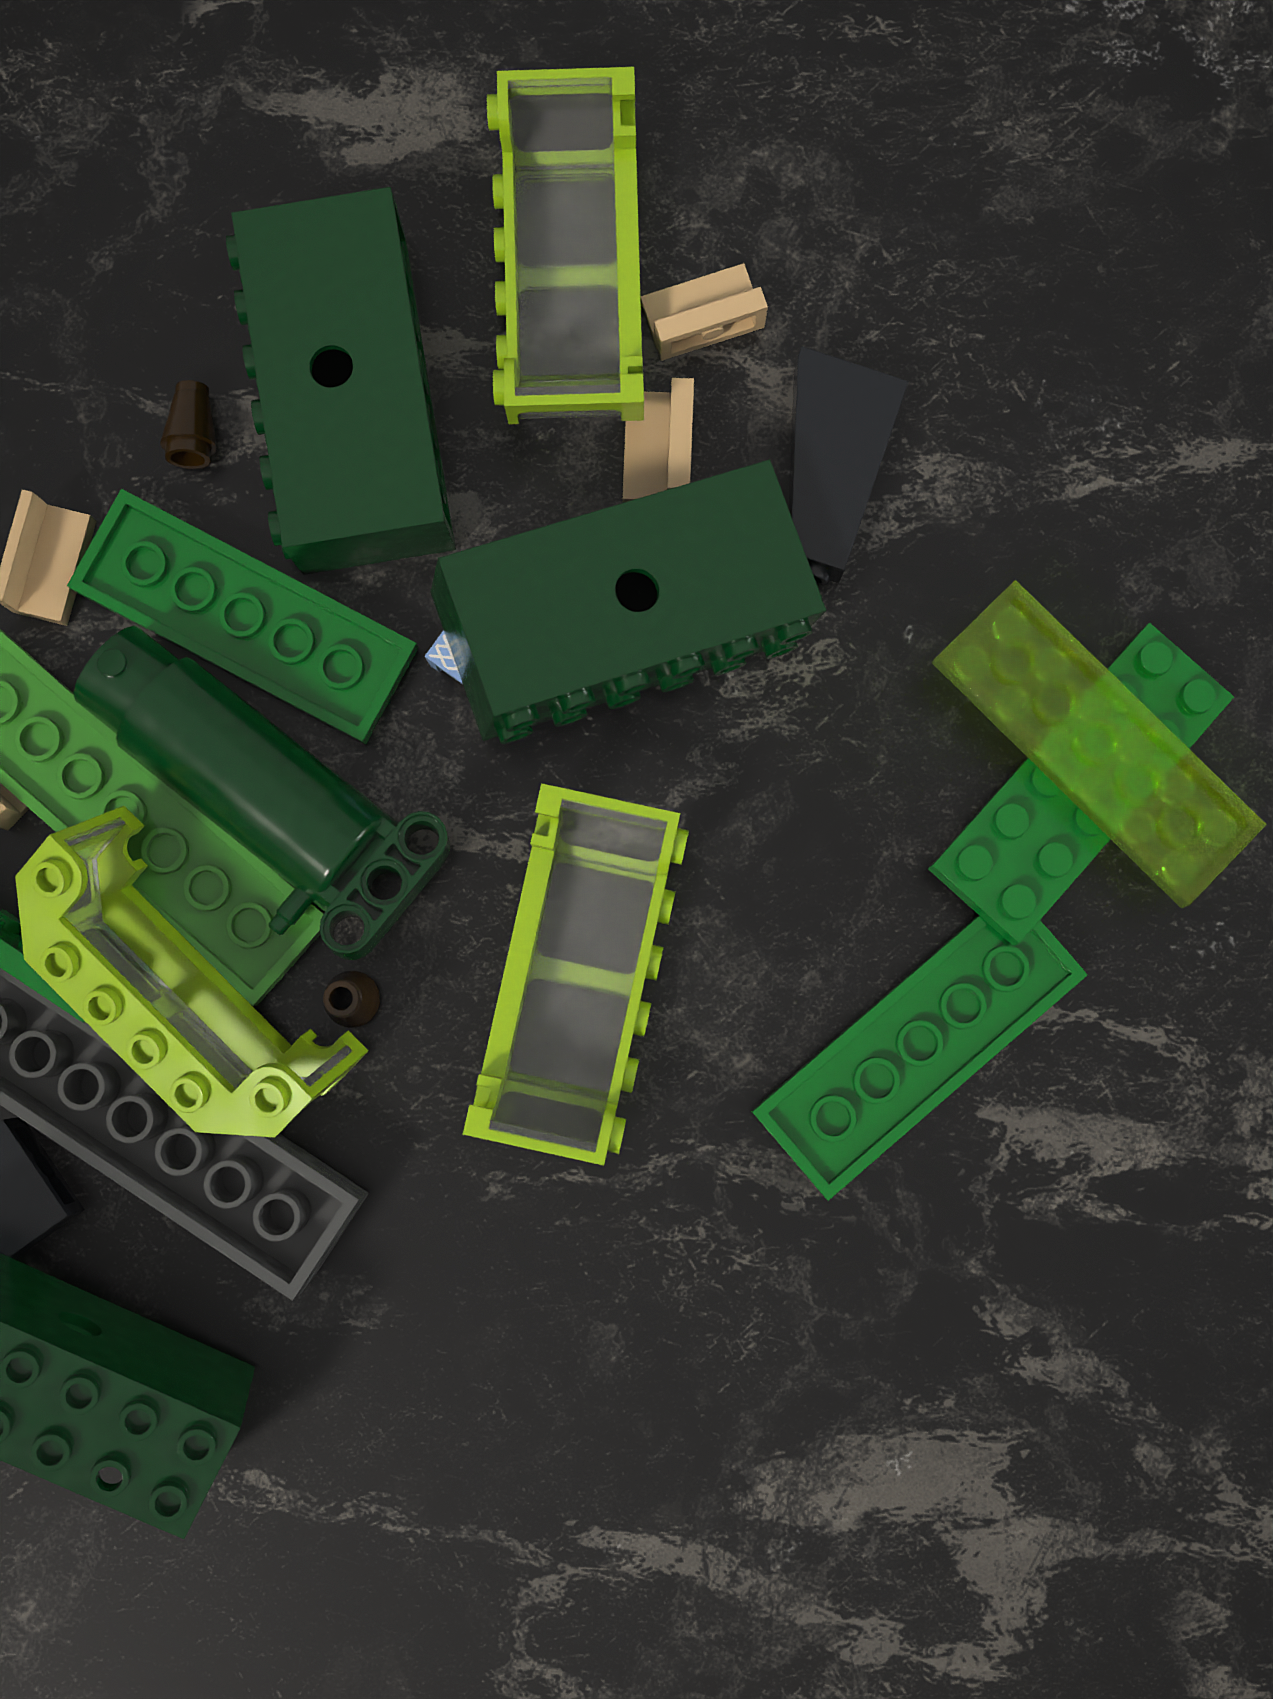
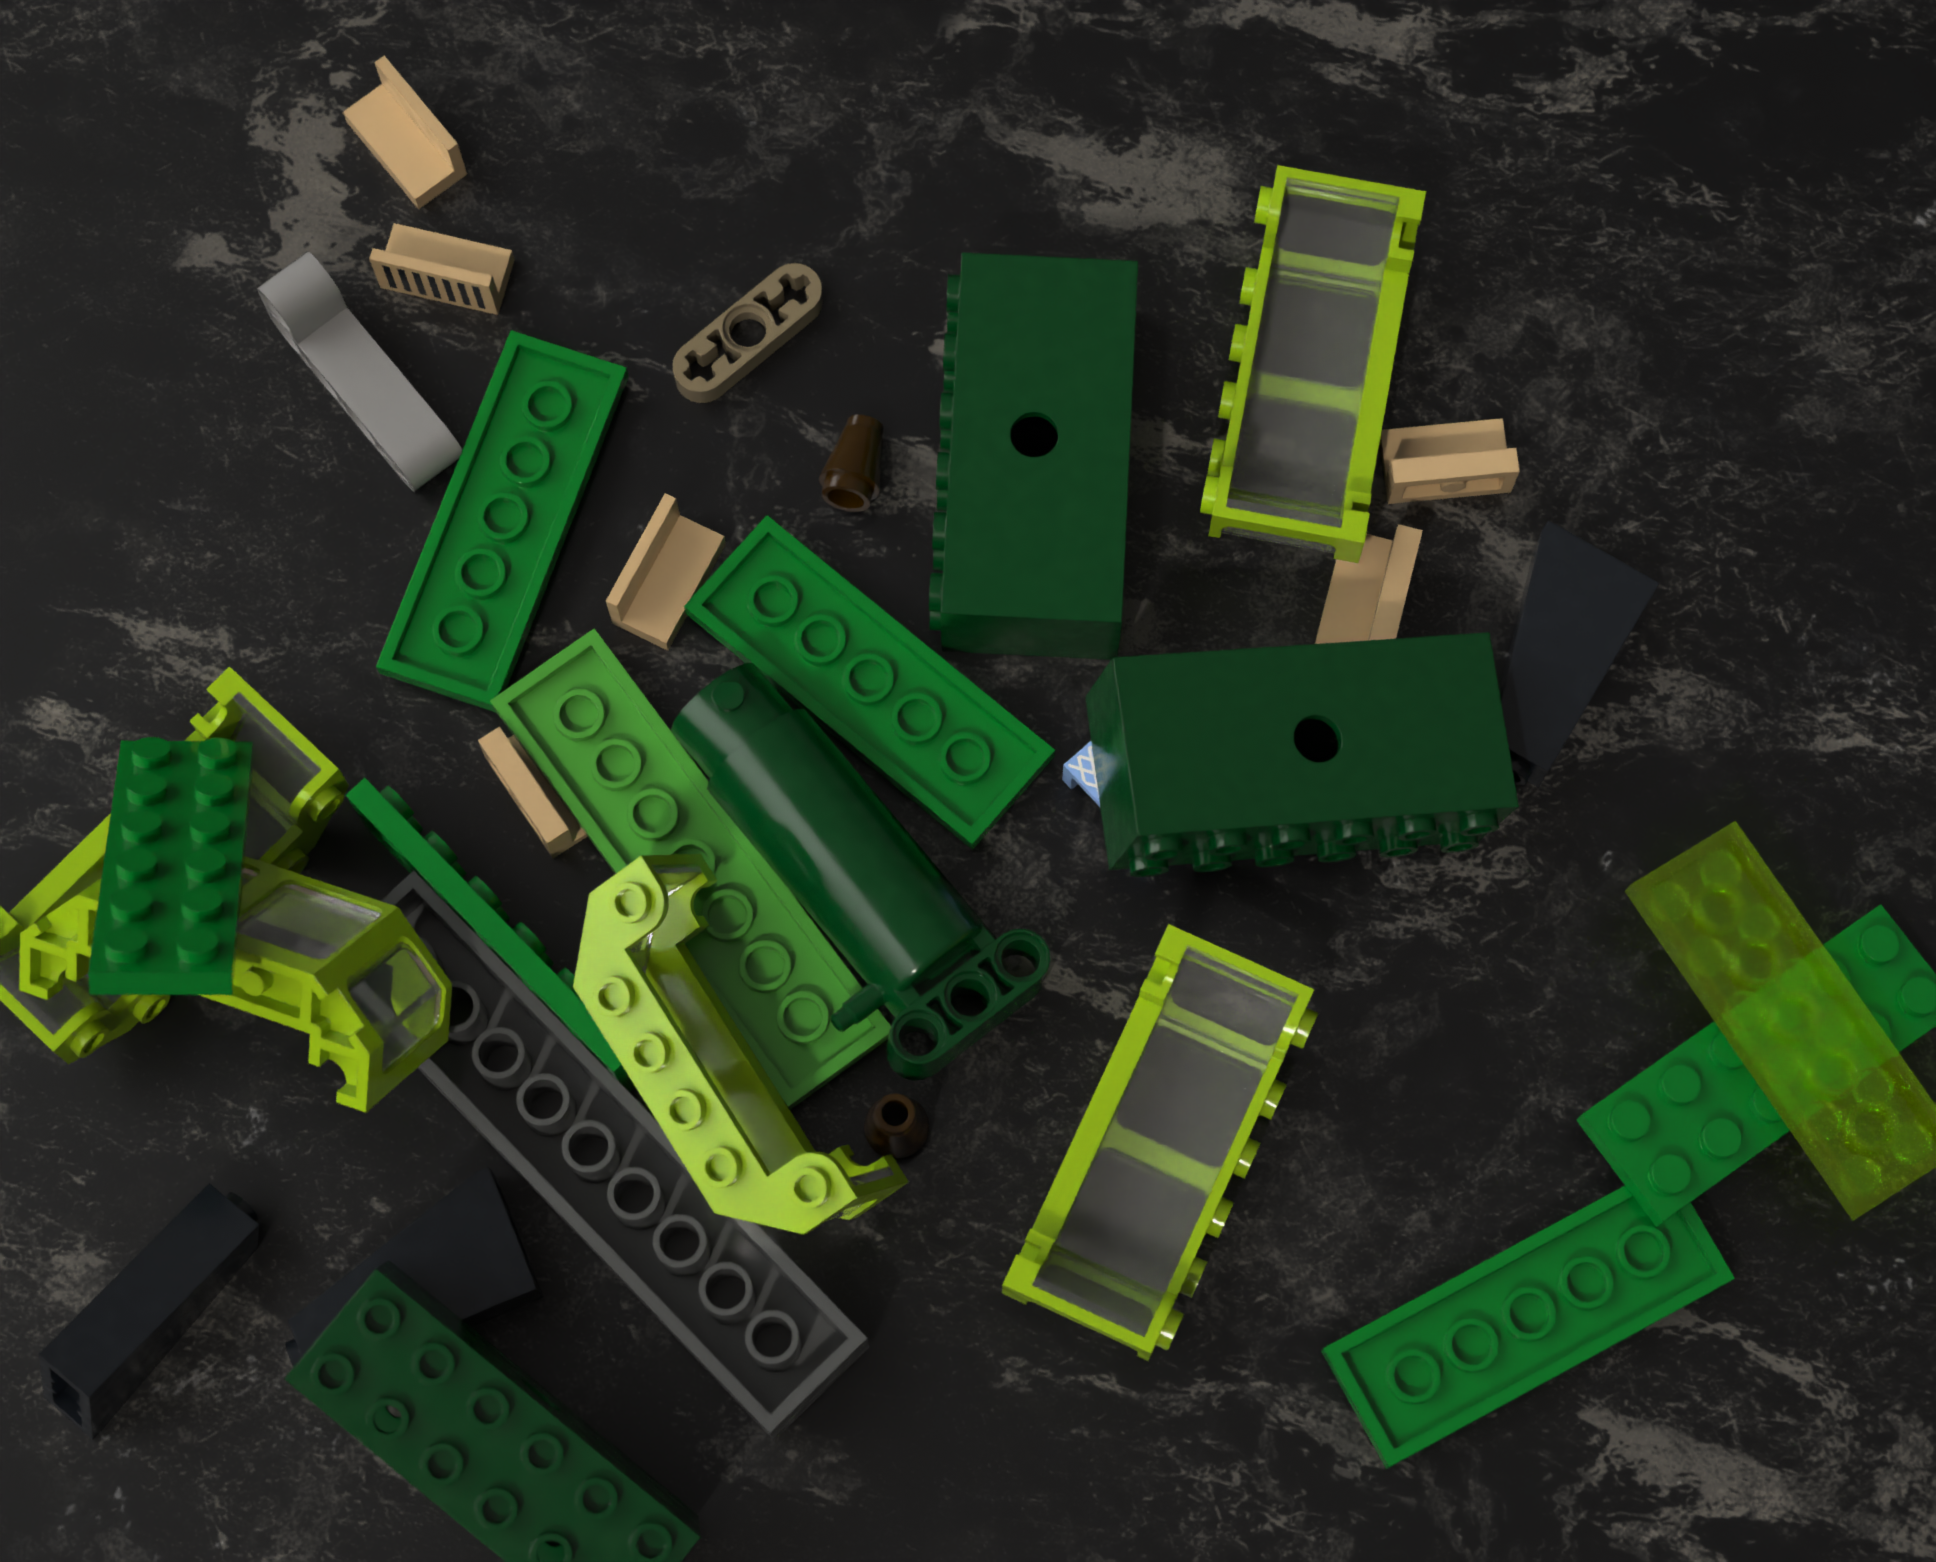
camera: 10 degrees right, 10 degrees down
(67, 304) = (791, 315): none -> dark tan beam

